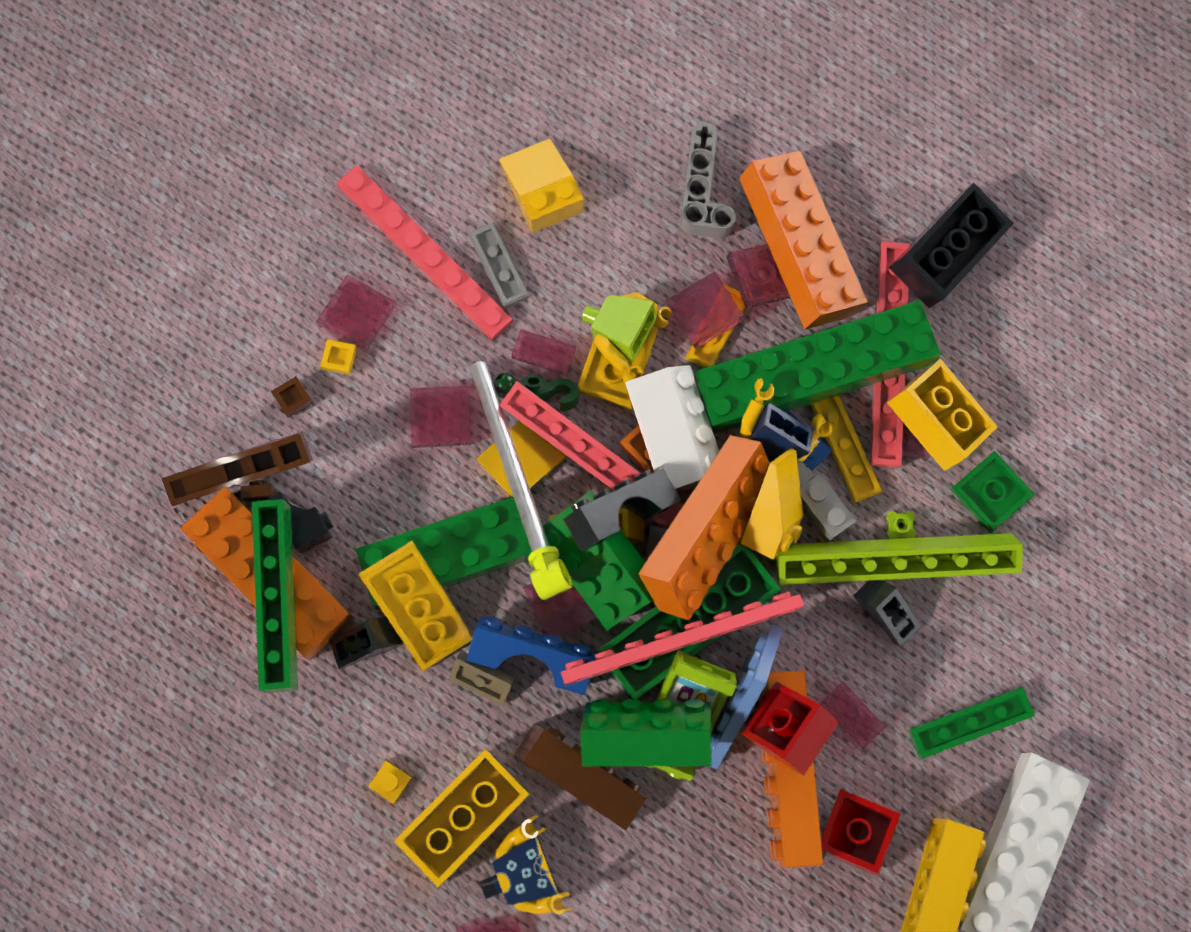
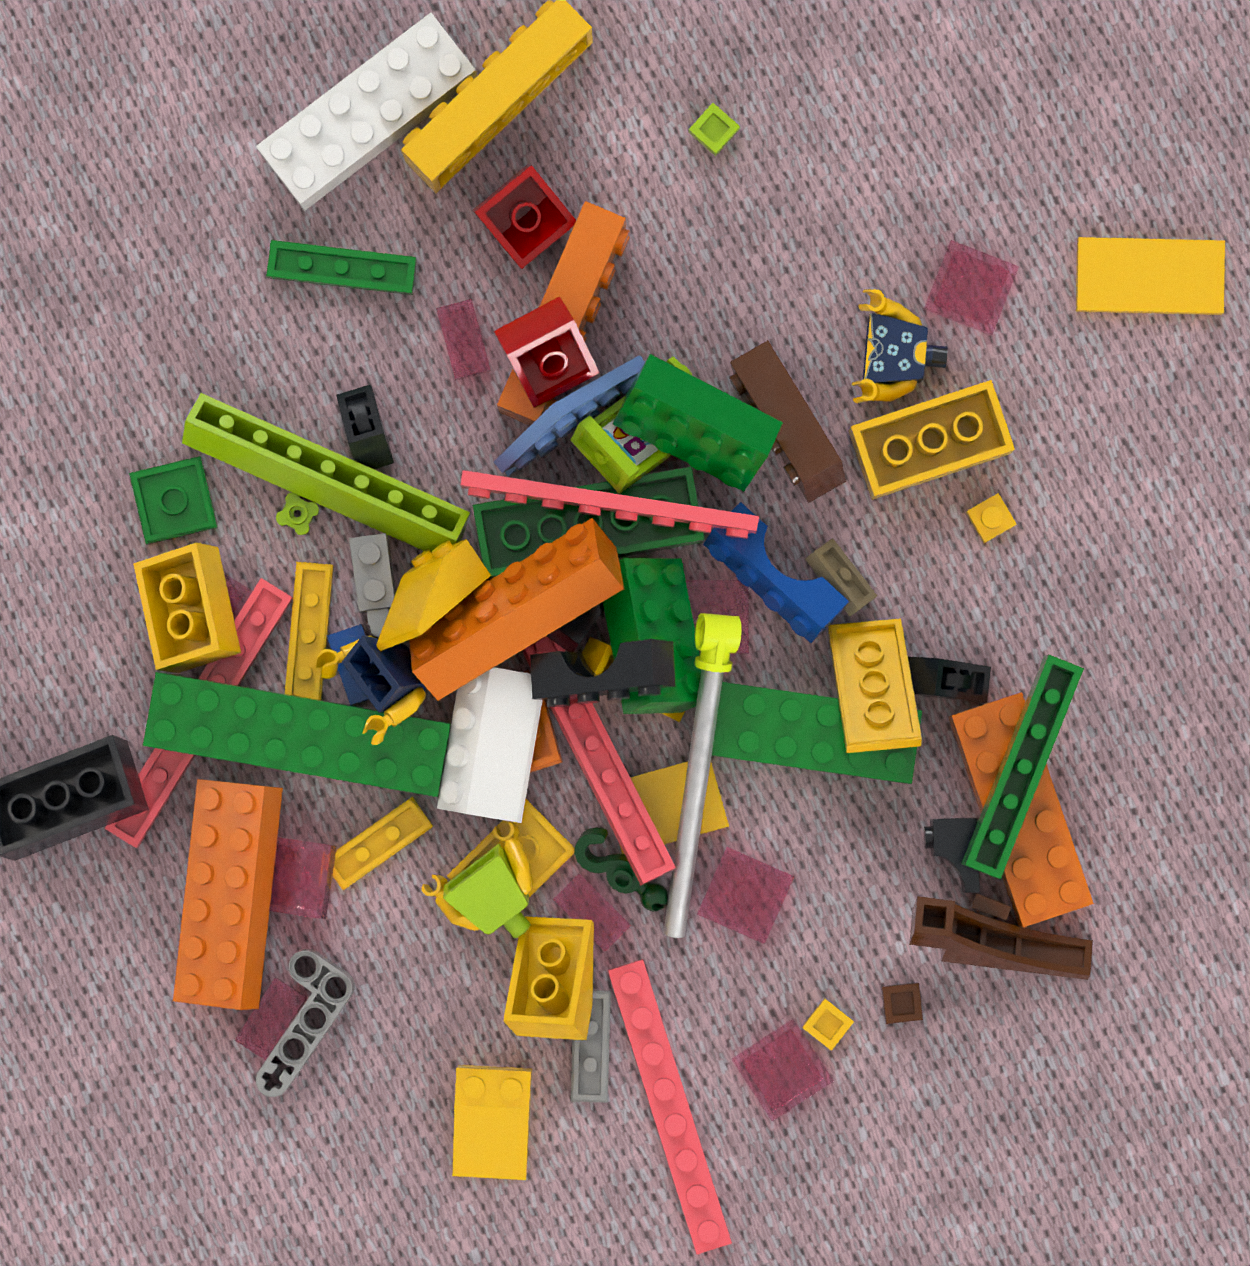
camera: 145 degrees left, 10 degrees up
(548, 292) = (552, 980): none -> yellow slope
(705, 310) = (383, 868): clear pink plate -> none
(726, 174) = (271, 1019): none -> clear pink plate

